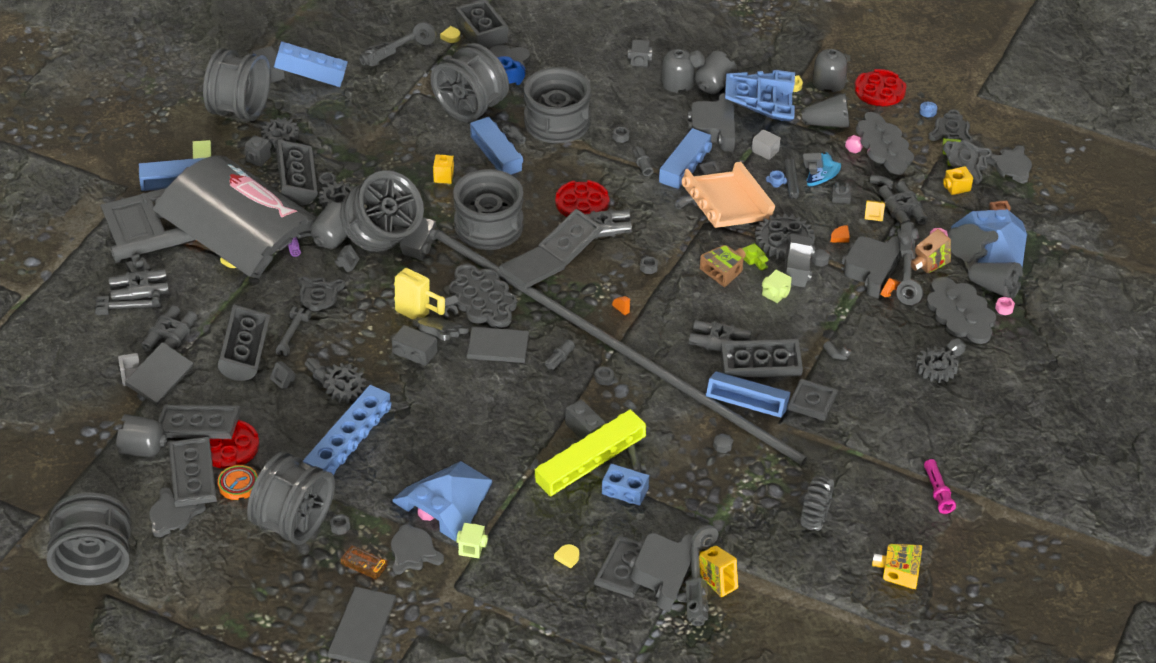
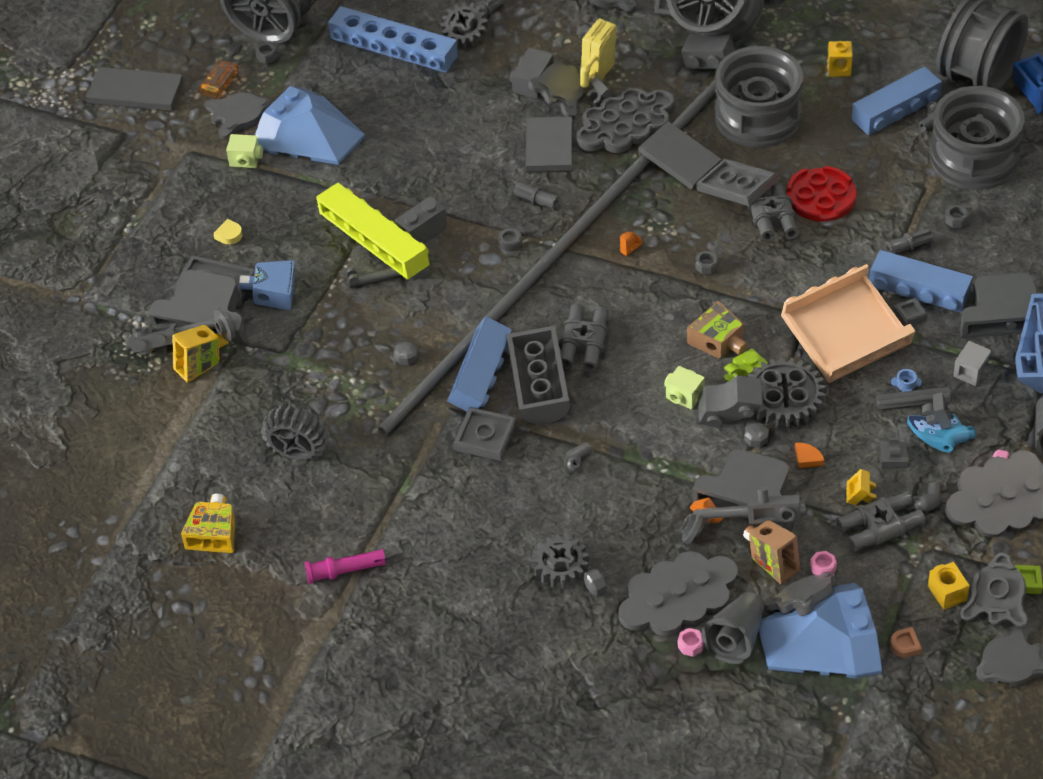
camera: 90 degrees right, 5 degrees up
(625, 484) = (328, 267): medium blue brick -> none
(641, 519) = (271, 284): none -> medium blue torso

